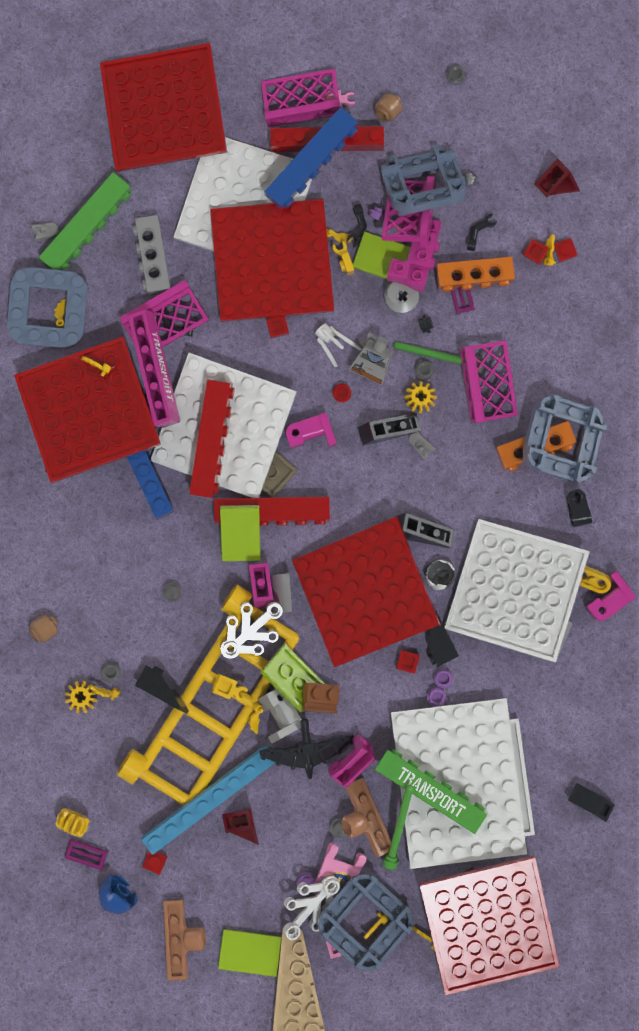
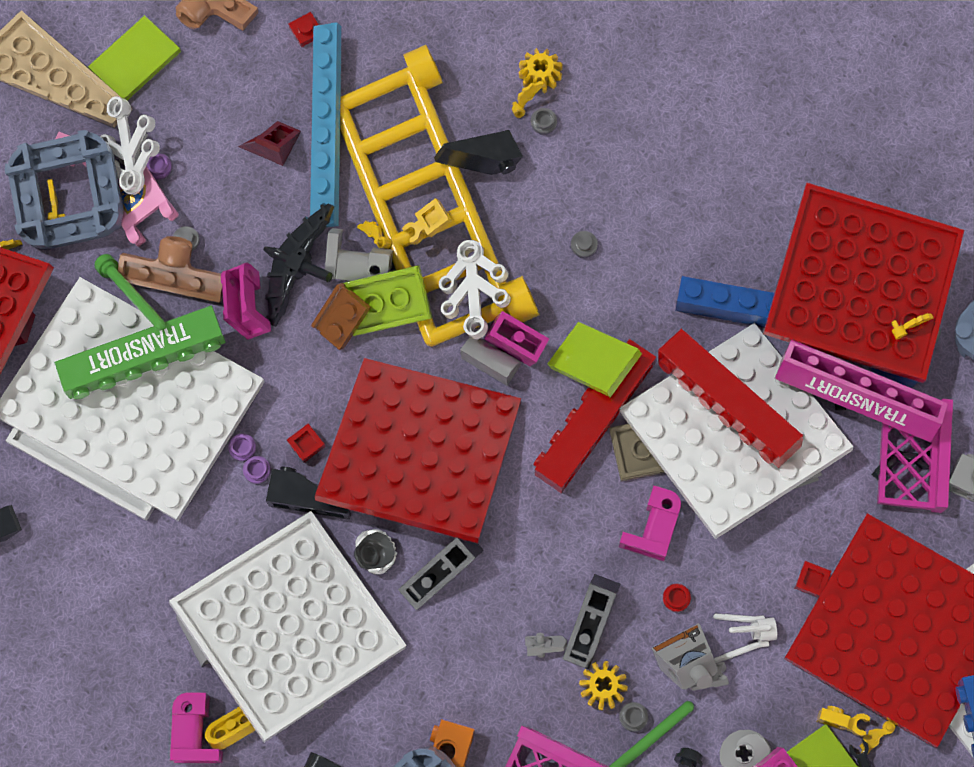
camera: 135 degrees right, 10 degrees down
(43, 628) = (646, 82): medium nougat head -> none

